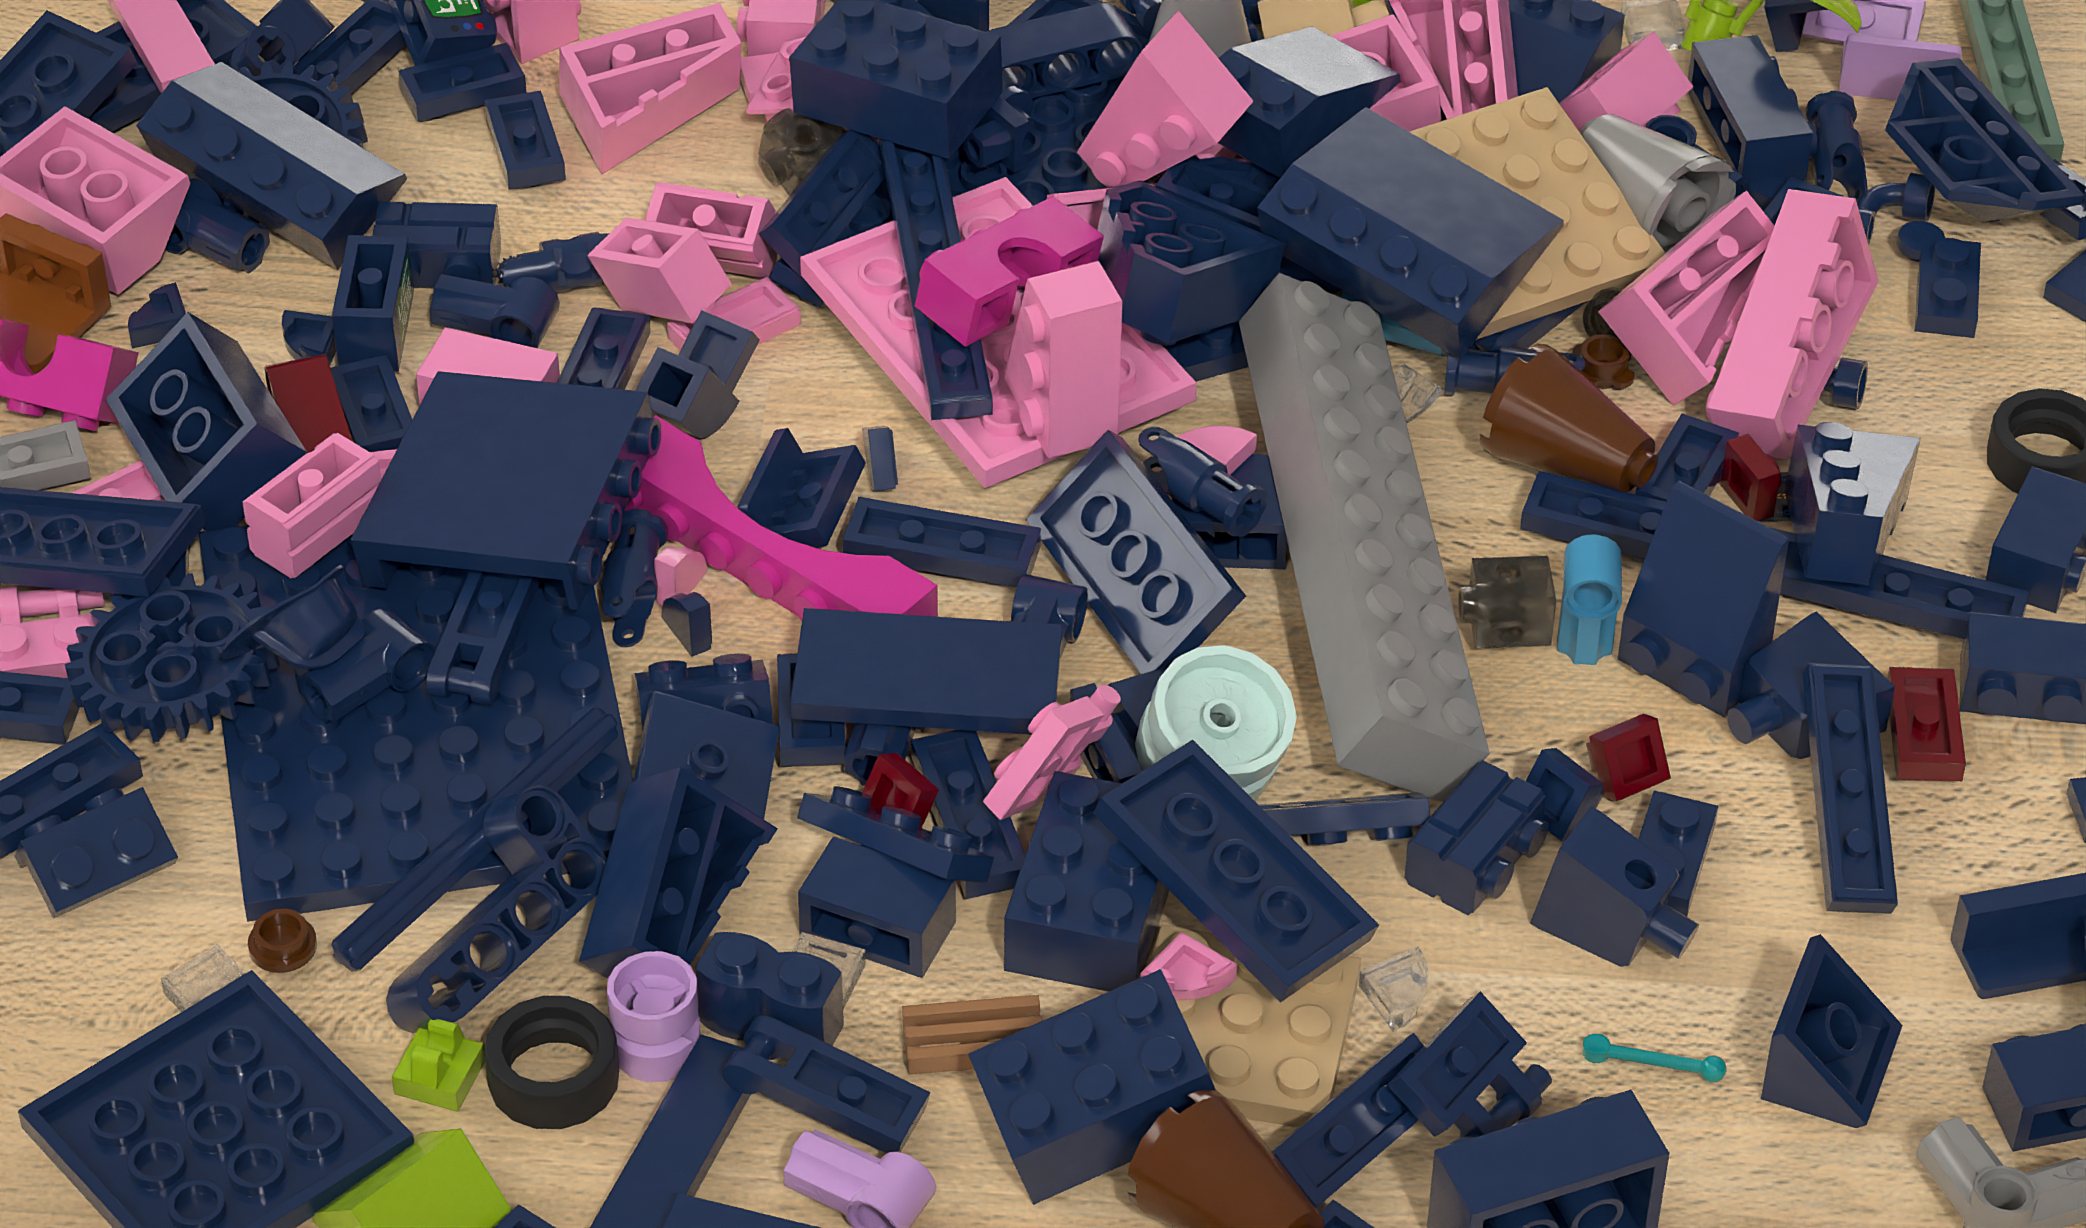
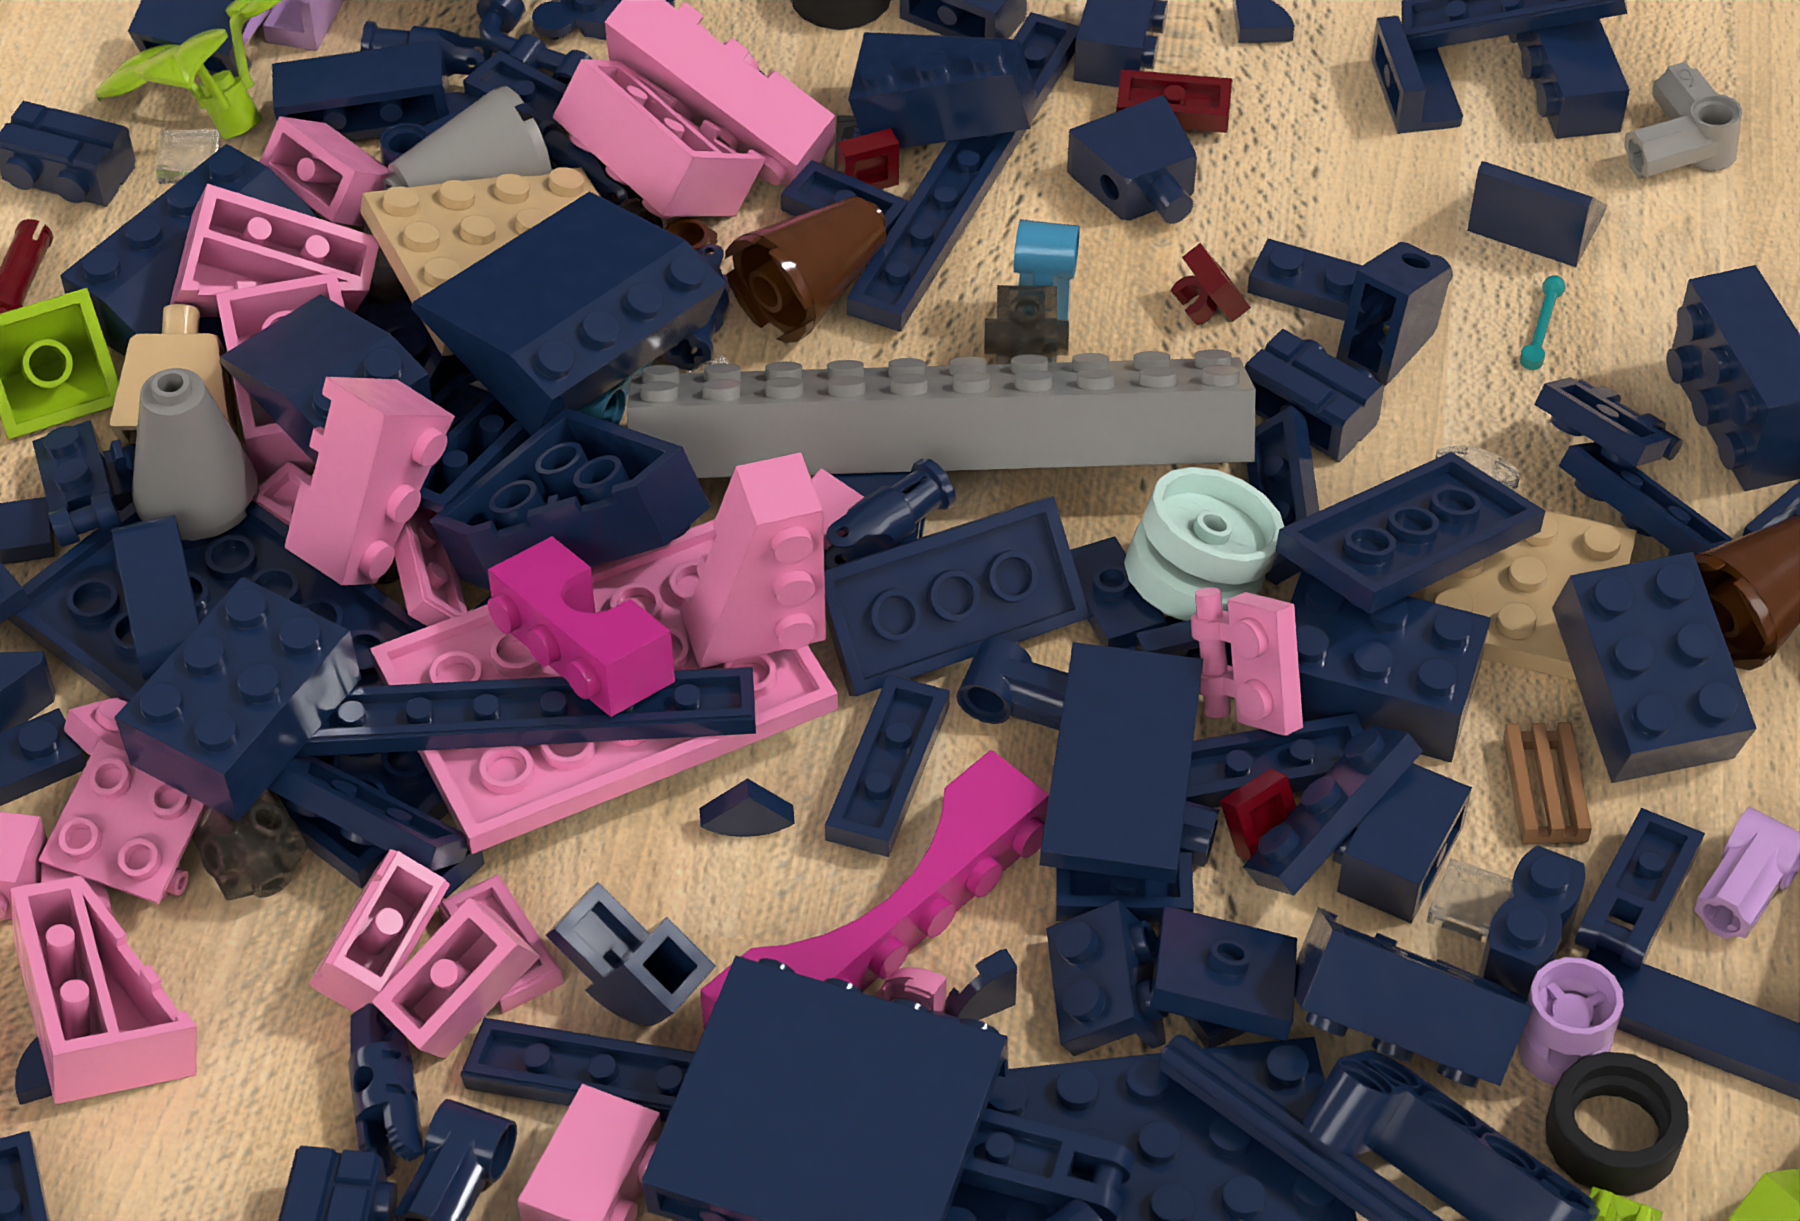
camera: 85 degrees left, 5 degrees up
(525, 140) = (138, 1139): dark blue plate -> none
(801, 491) = (810, 875): dark blue bracket -> none
(1193, 969) = (1495, 596): bright pink tile -> none
(1567, 790) = (1254, 325): dark blue tile -> none
(1703, 599) = (1079, 173): dark blue slope -> none
(1849, 789) = (1267, 144): dark blue tile -> none

